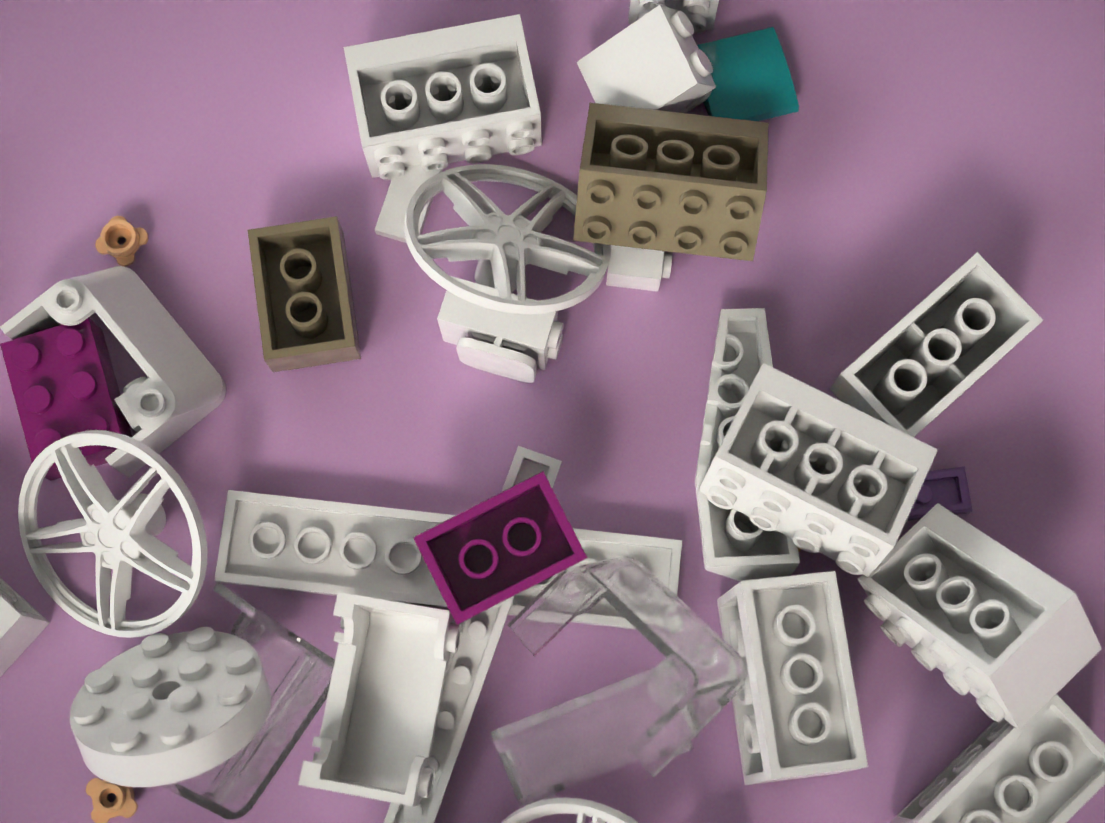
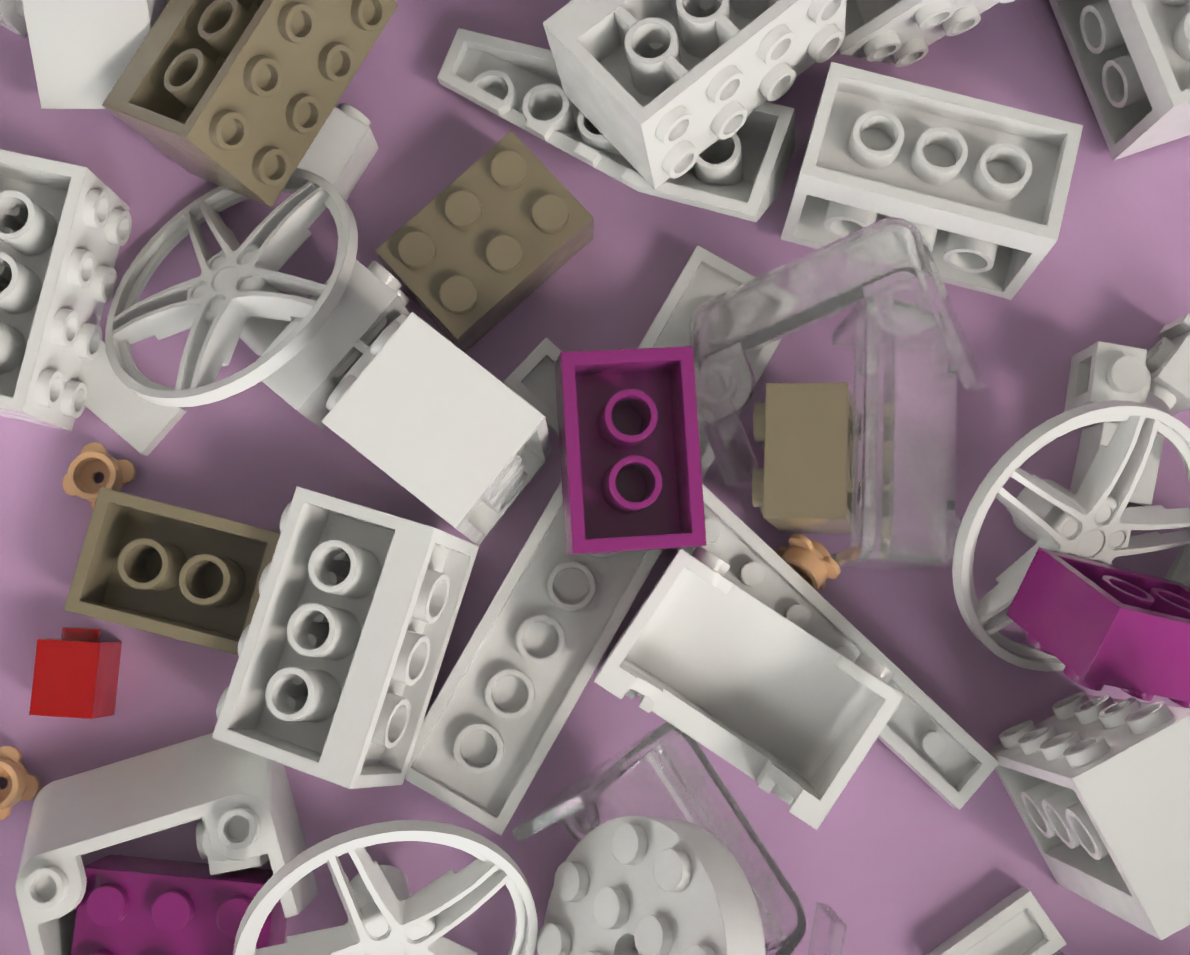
camera: 70 degrees left, 5 degrees up
(210, 255) = (75, 675): none -> red brick
(301, 419) = (345, 642): none -> white brick
(357, 201) = (92, 460): none -> light nougat plate
(458, 418) = (441, 426): none -> white brick
(488, 714) = (809, 560): none -> light nougat plate
(547, 667) = (806, 457): none -> dark tan brick
(617, 394) = (487, 241): none -> dark tan brick

